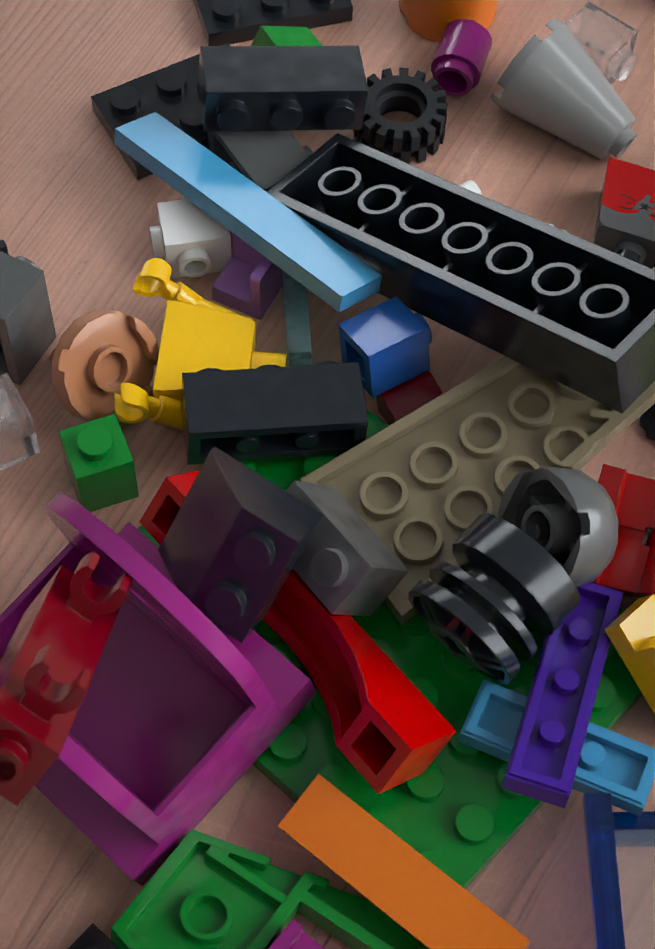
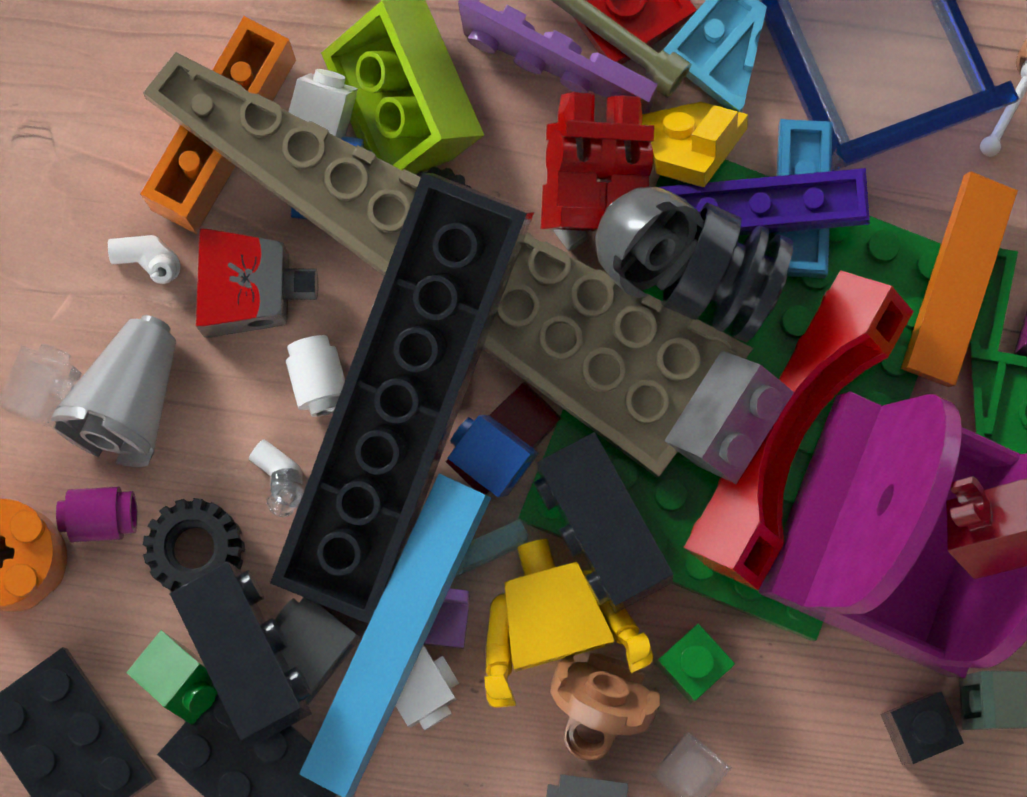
camera: 105 degrees left, 20 degrees up
(235, 543) = (785, 478): black slope -> none

